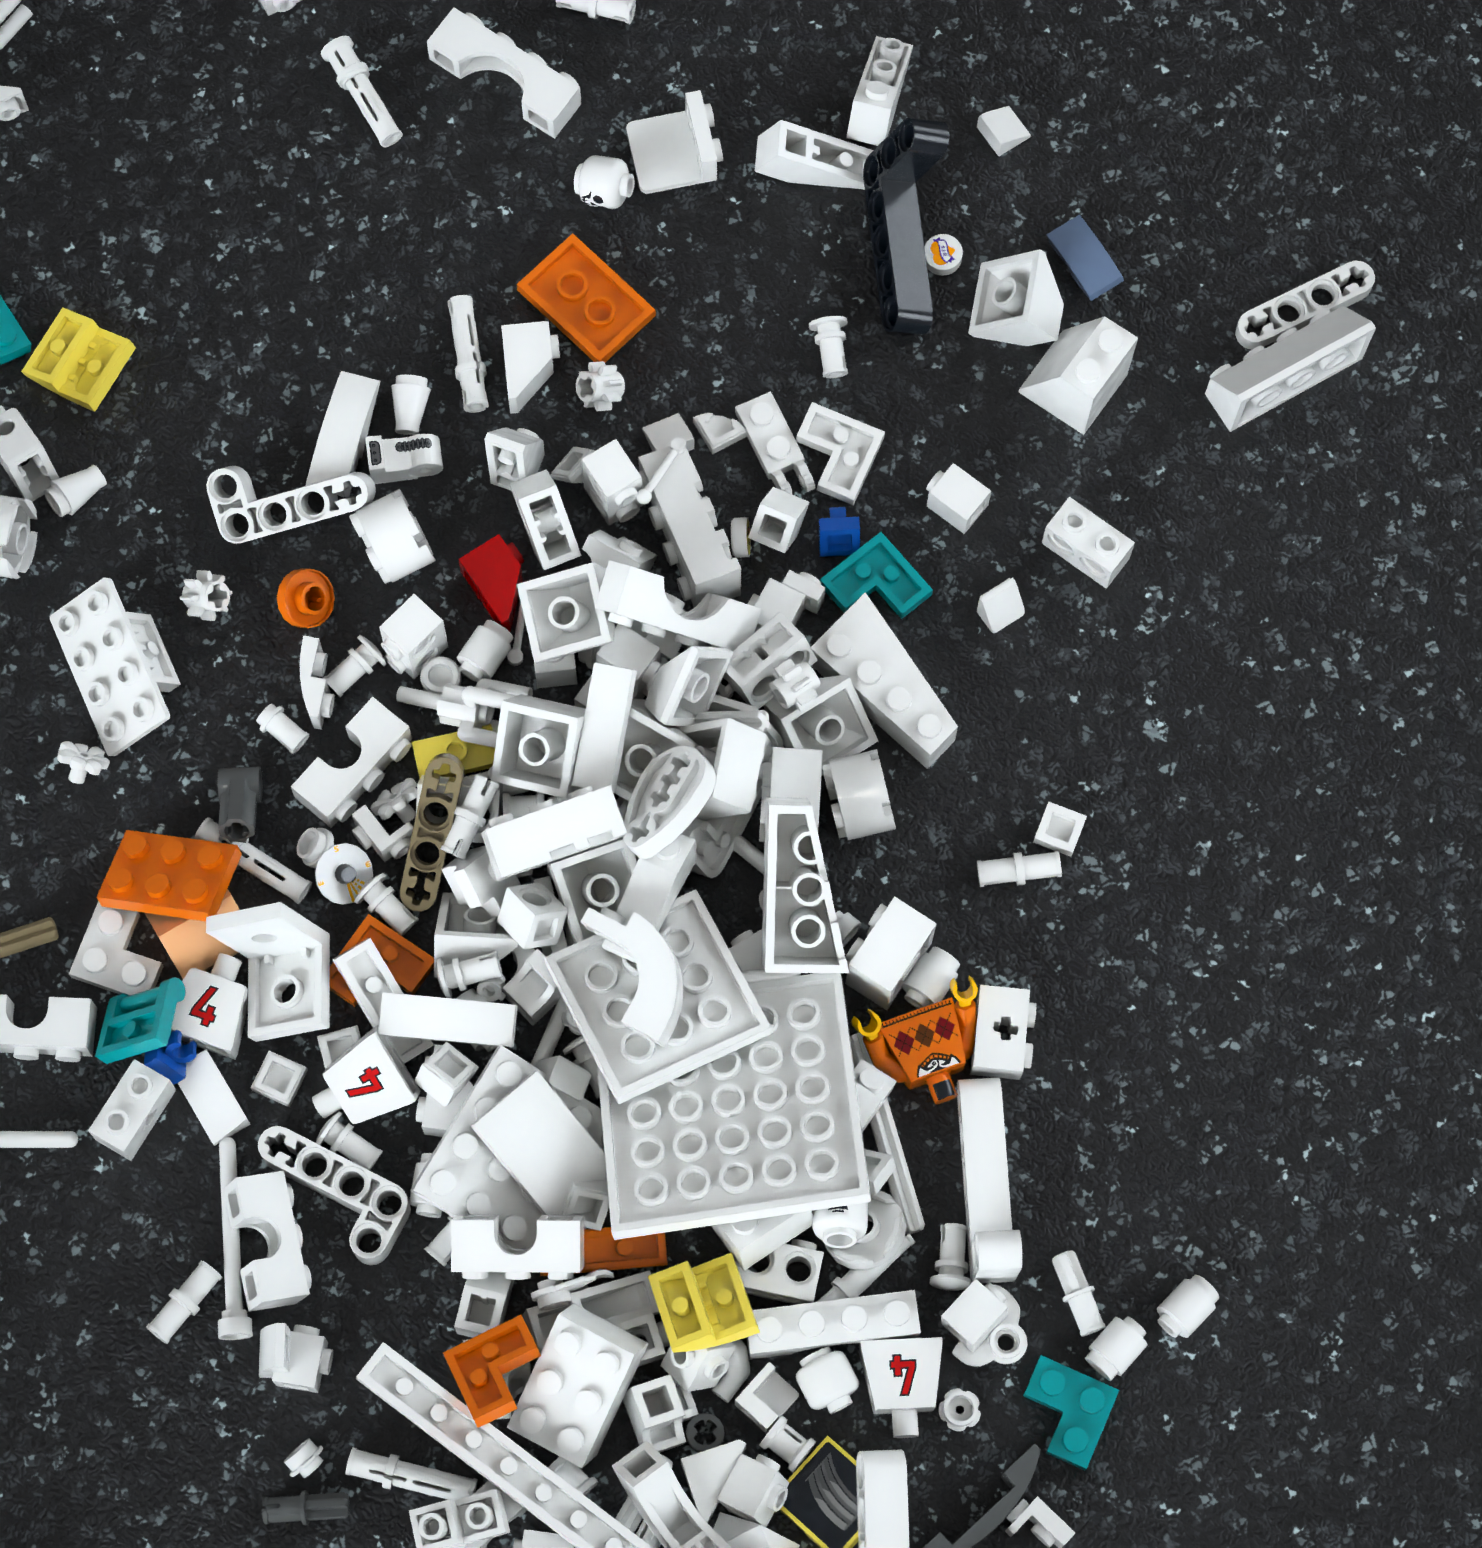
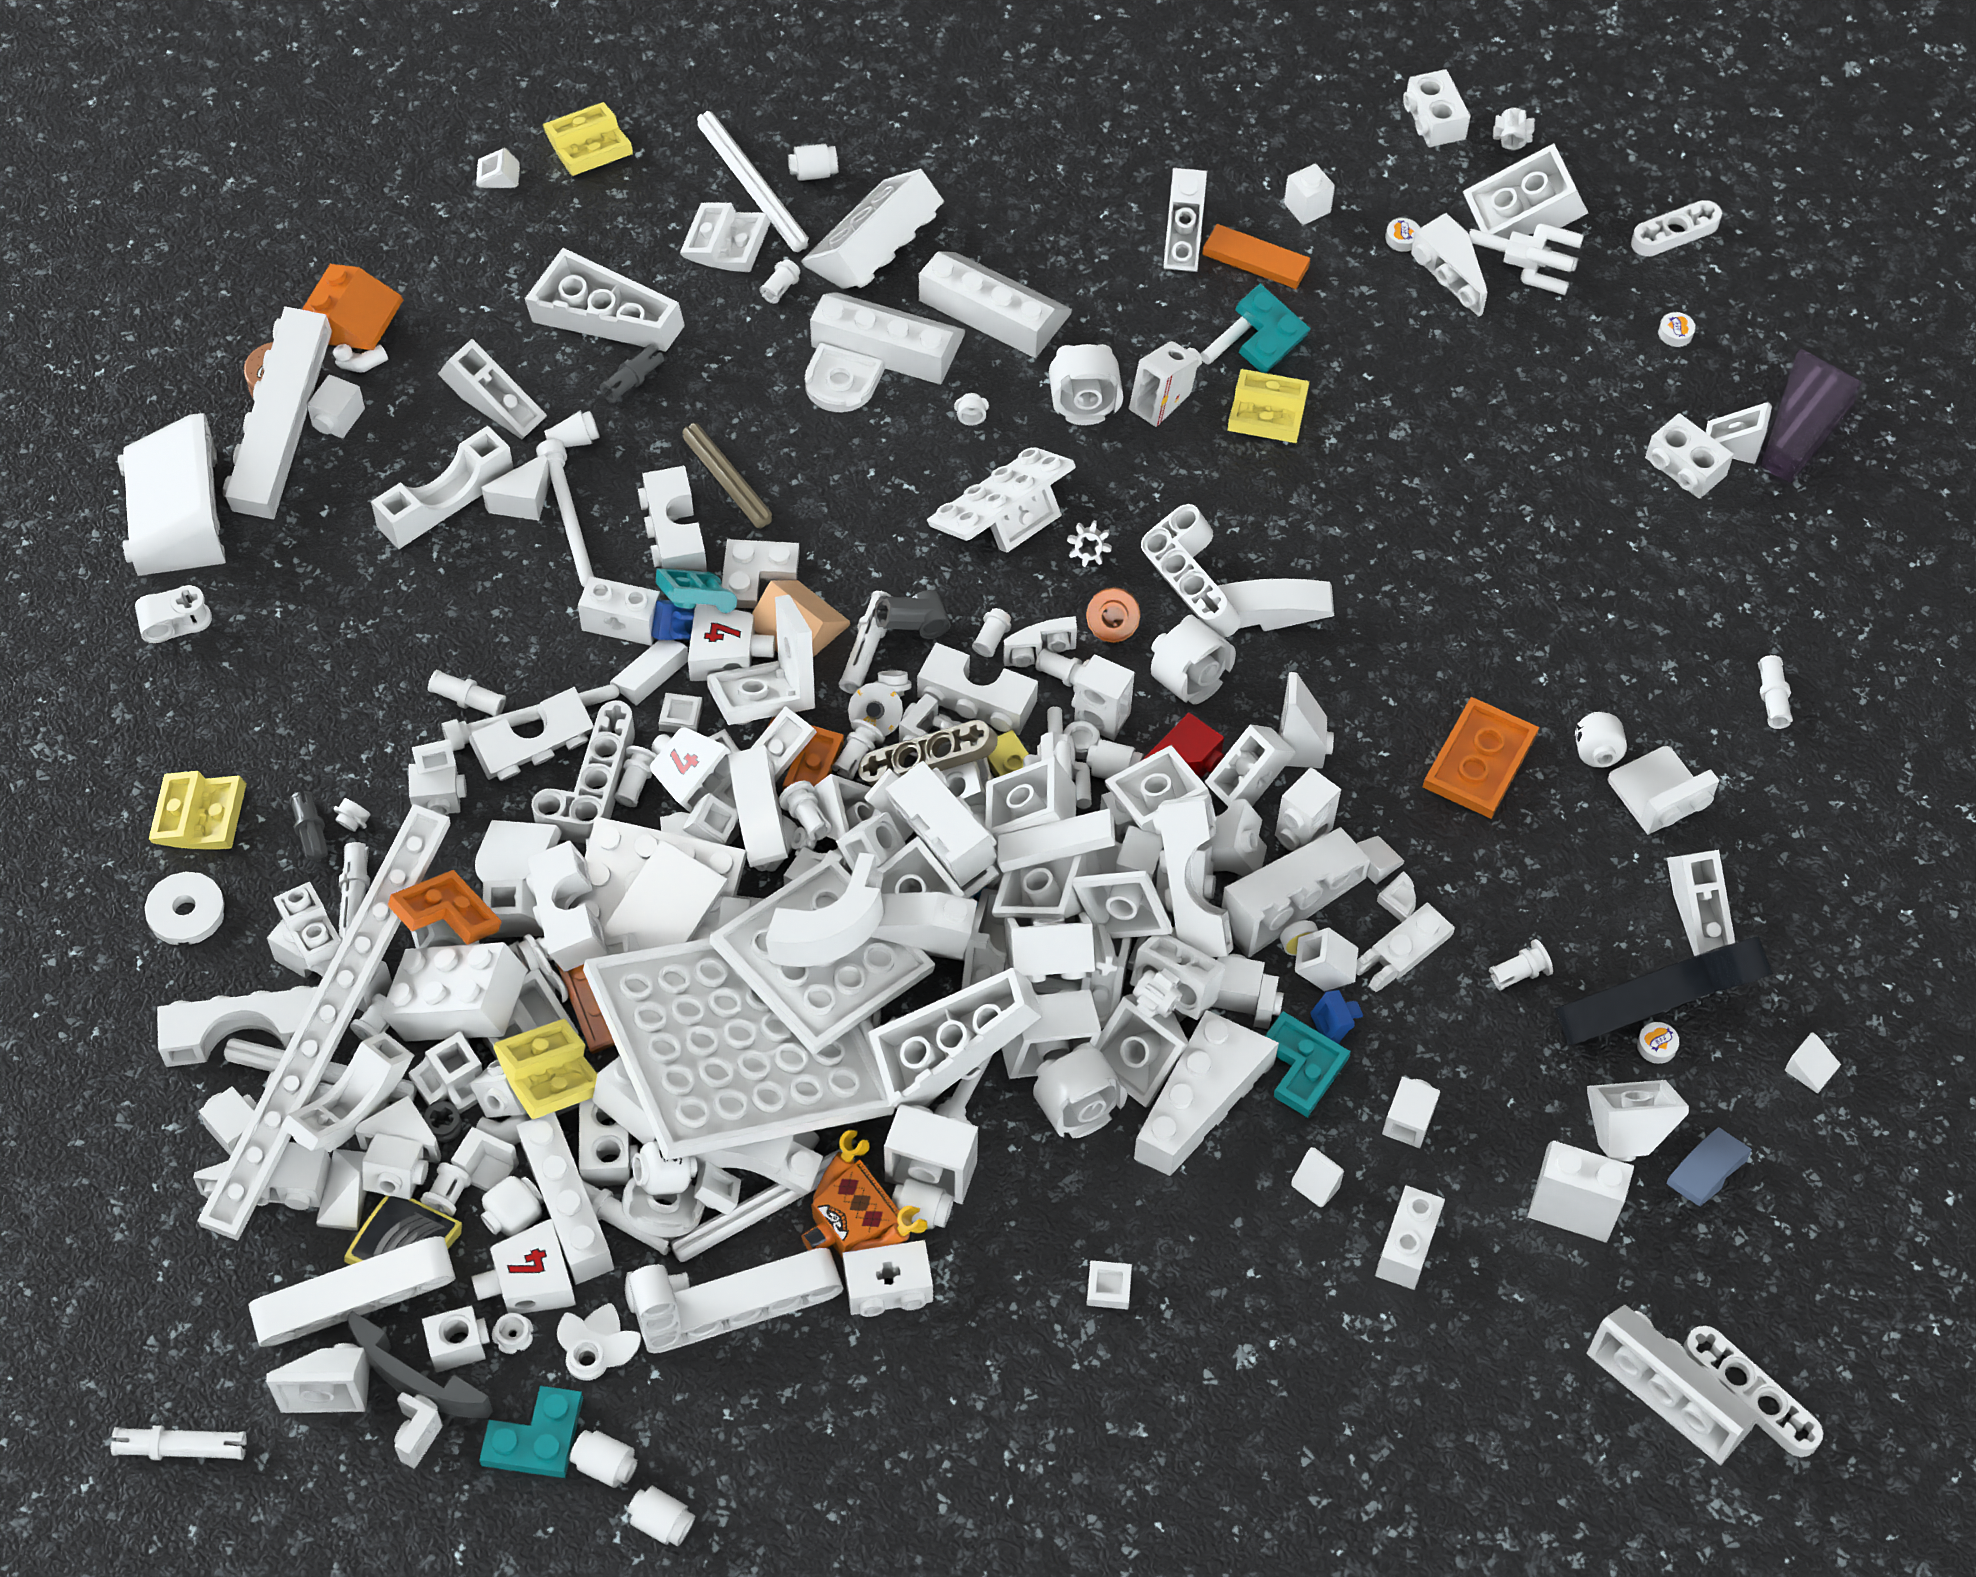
camera: 75 degrees right, 15 degrees down
(74, 490) = (1149, 431): white cone -> none
(82, 760) = (914, 498): white plant -> none
(169, 875) = (829, 579): orange plate -> none
(354, 77) = (1613, 528): white pin -> none
(403, 457) = (1270, 652): white leg -> none
(409, 402) = (1325, 647): white cone -> none
(411, 1292) = (509, 845): none -> white tile
(467, 46) = (1663, 670): white arch -> none
(469, 367) = (1354, 692): white pin -> none
(470, 816) = (956, 771): white pin -> none
(527, 360) = (1399, 724): white slope -> none
(600, 386) = (1400, 786): white gear -> none
(667, 799) = (998, 896): white piece -> none
(677, 446) = (1362, 853): white hinge -> none
(850, 447) = (1421, 1011): white plate -> none
(879, 91) = (1802, 942): white slope -> none
(955, 1485) = (443, 1326): none -> white brick
(975, 1314) = (601, 1314): white brick -> none
(1019, 868) = (1057, 1258): white pin -> none
(1078, 1293) = (650, 1412): white axle -> none

